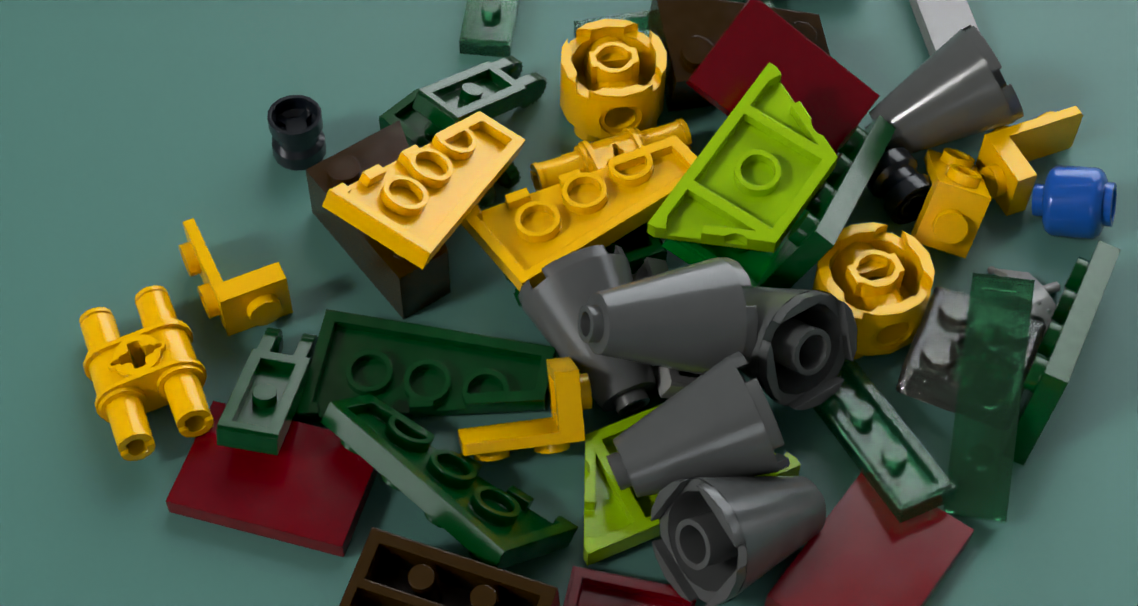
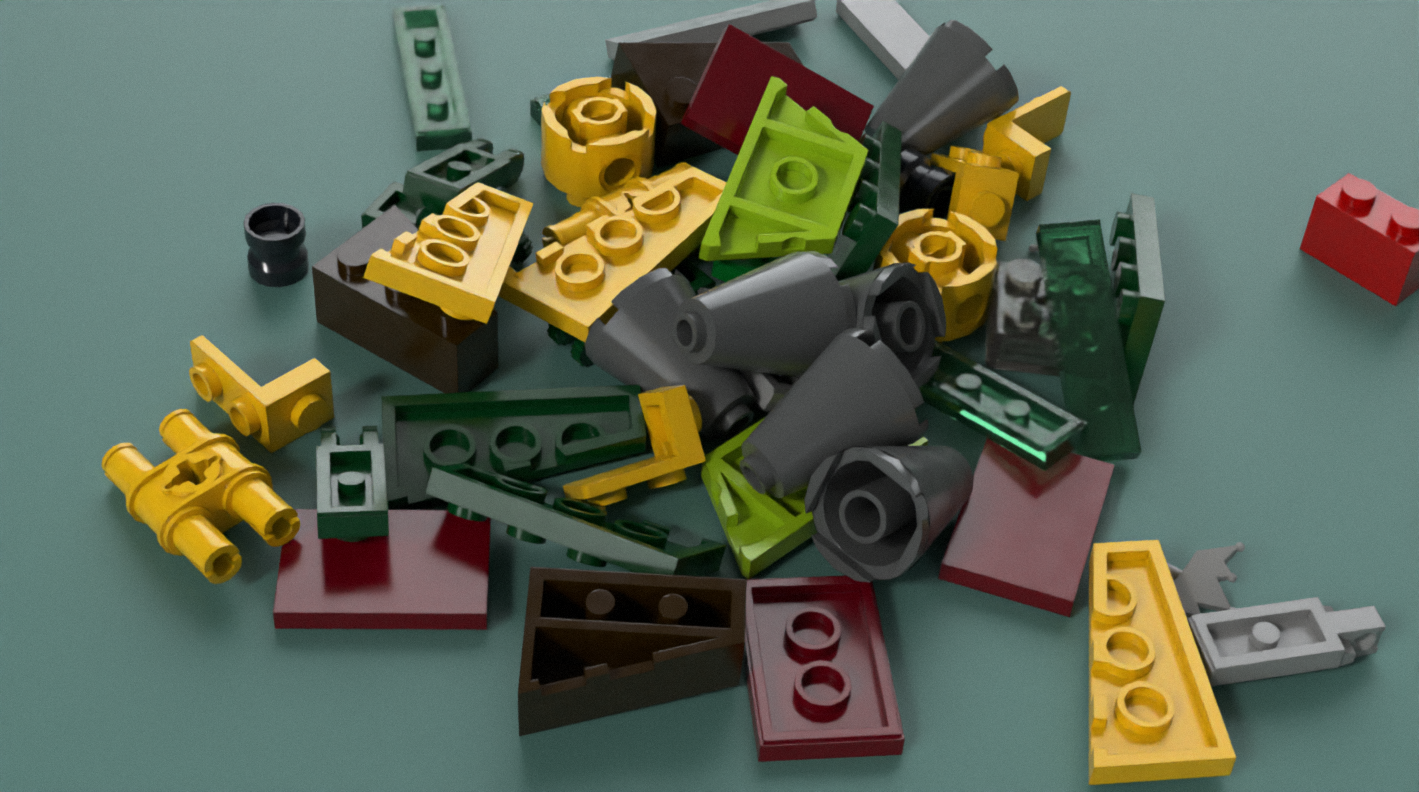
camera: 20 degrees left, 10 degrees down
(1075, 202) = (1091, 171): blue head -> none

